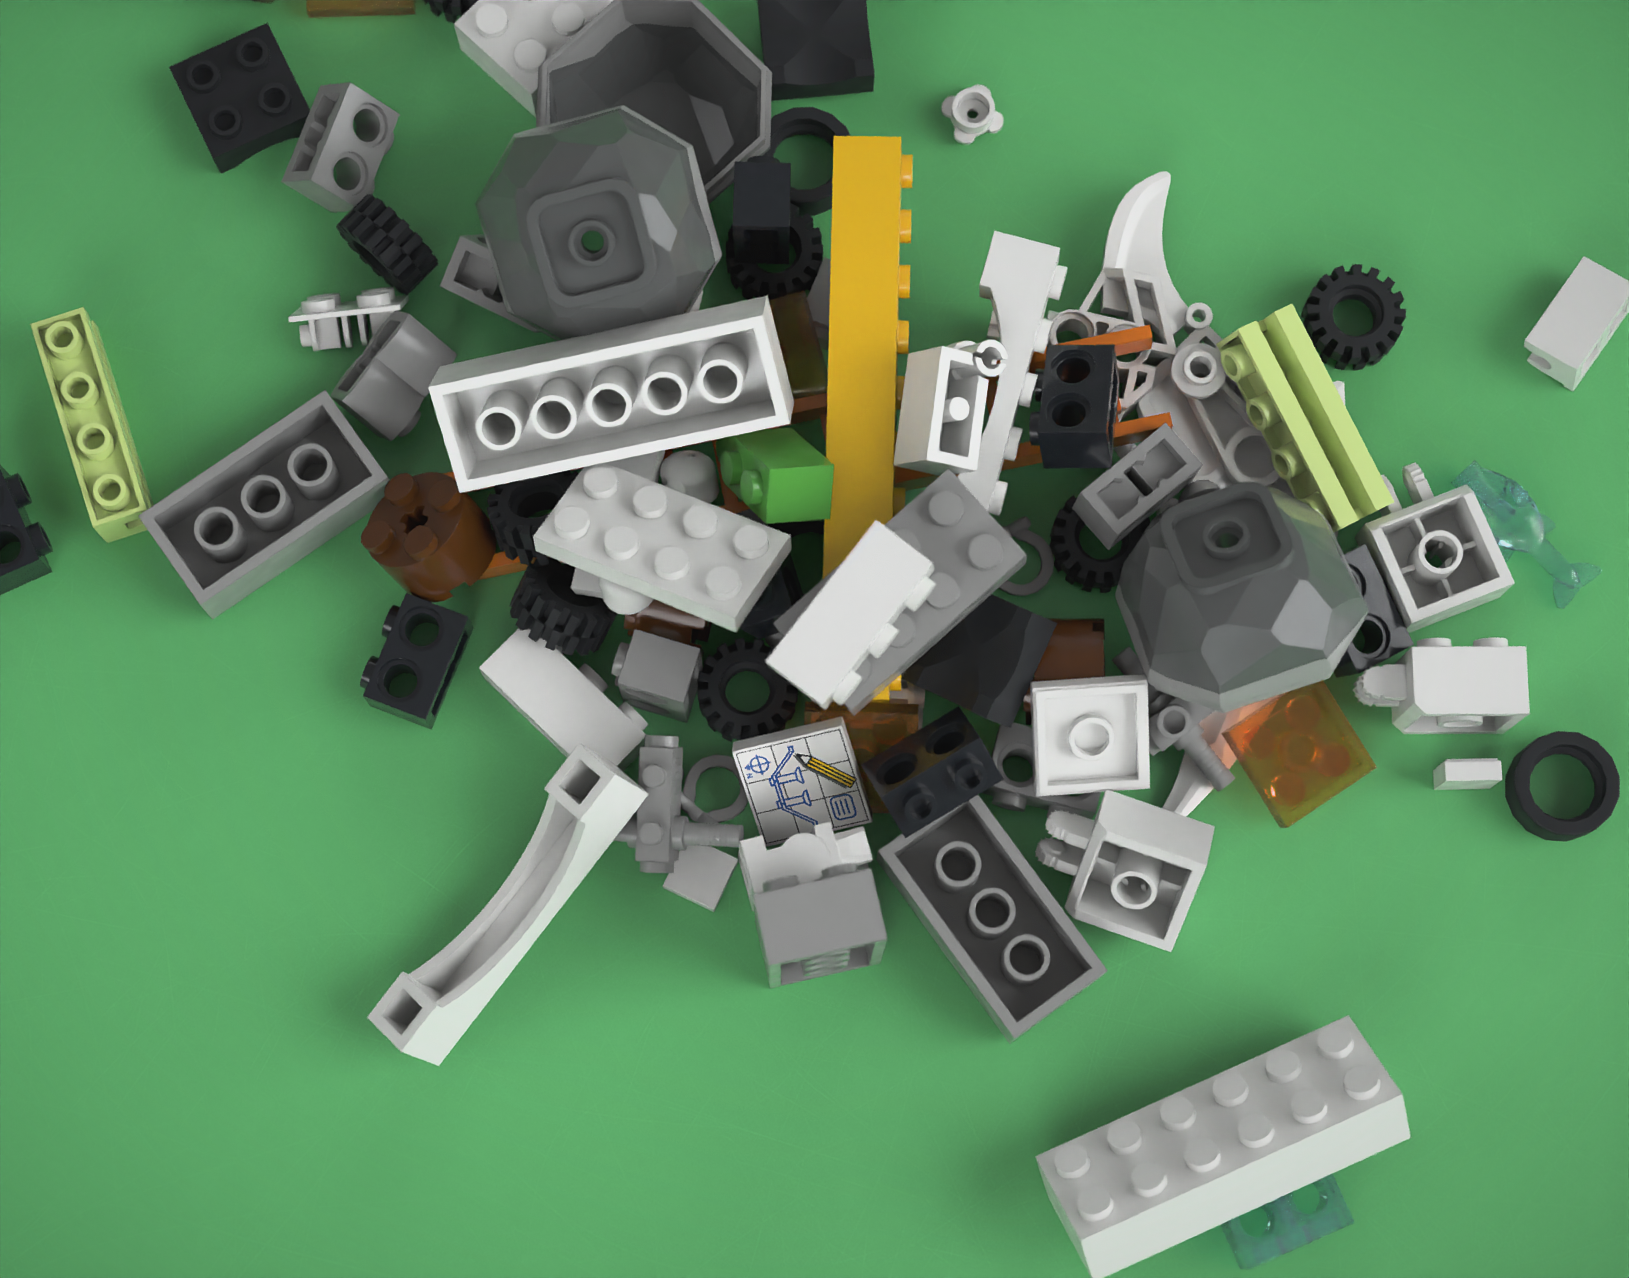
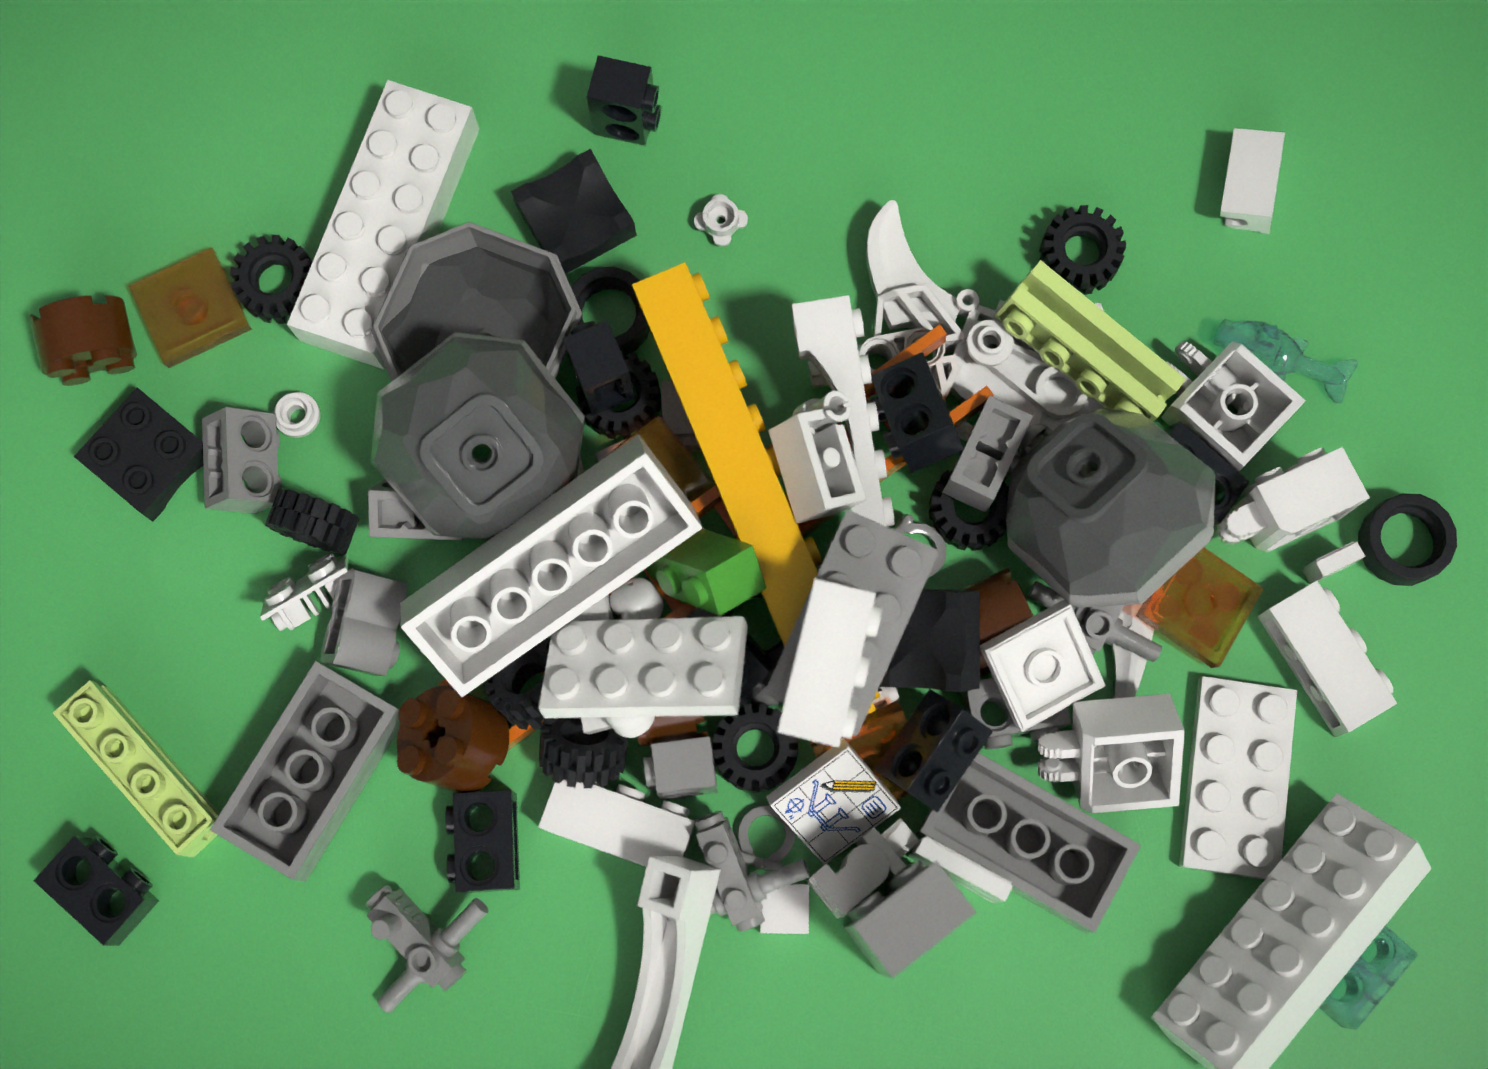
camera: 20 degrees left, 0 degrees up
(307, 746) = (429, 951): none -> light grey piece
(420, 111) = (291, 403): none -> white plate
(906, 913) = (963, 870): none -> white tile
(1253, 955) = (1238, 778): none -> white plate
(1411, 872) = (1328, 659): none -> white brick

